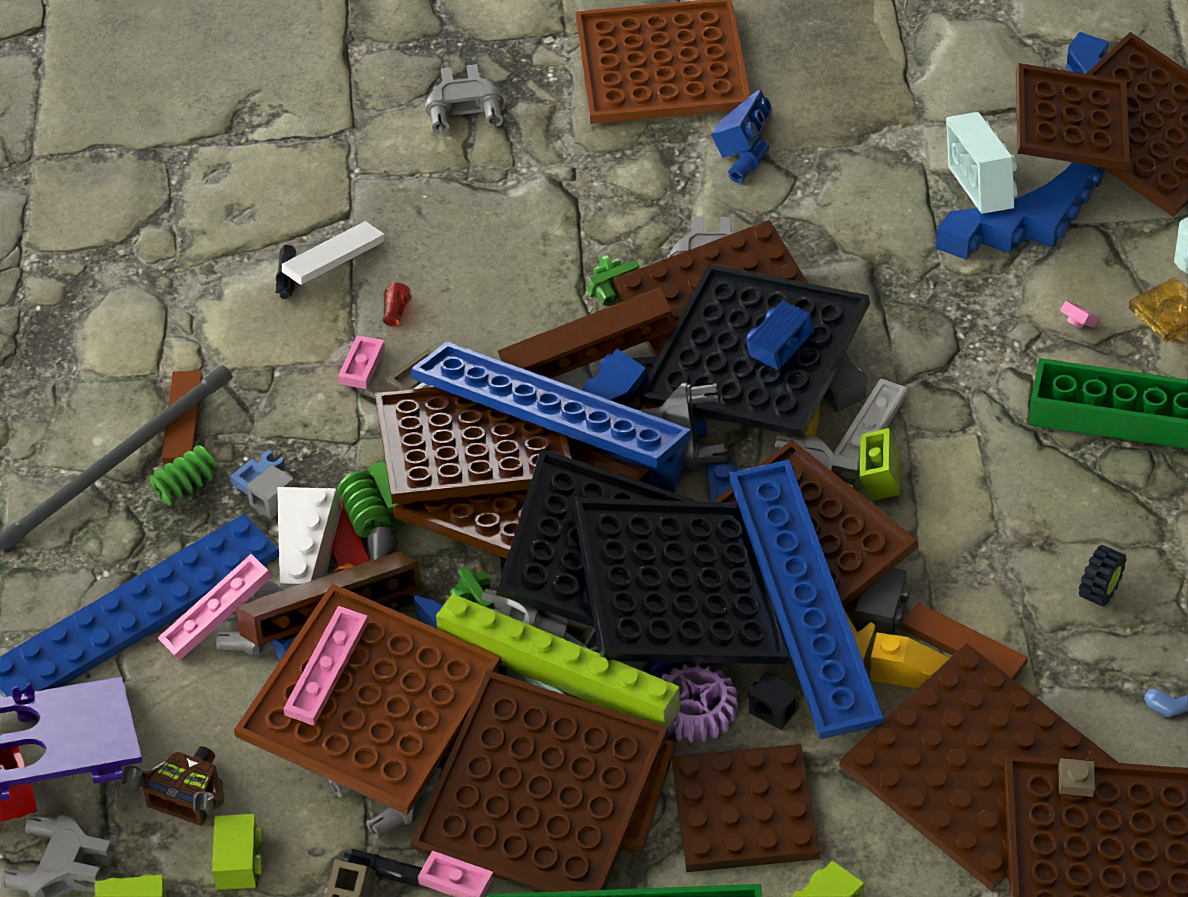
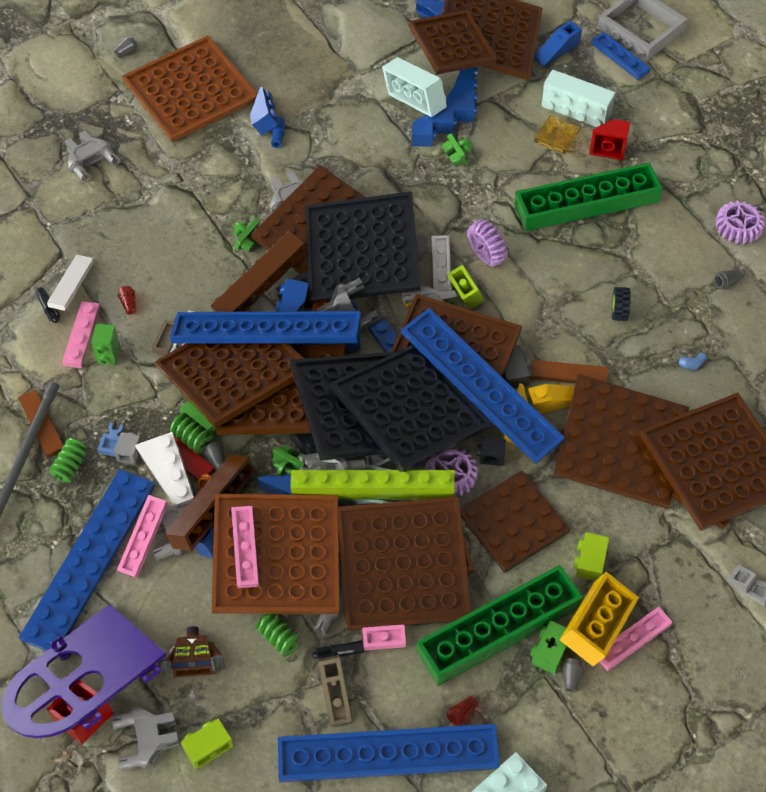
camera: 30 degrees left, 10 degrees up
(236, 851) = (249, 682): lime brick -> none
(307, 326) = (81, 334): none -> bright pink plate
(314, 808) = (277, 634): none -> bright green piece
(324, 346) = (105, 344): none -> bright green brick
(361, 362) = (130, 344): bright pink plate -> none
(779, 335) = (377, 234): blue brick -> none
(951, 415) = (487, 243): none -> lavender gear
(999, 275) = (452, 145): none -> bright green hips
(1076, 777) = (683, 427): dark tan plate -> none
(1079, 316) = (514, 157): bright pink plate -> none

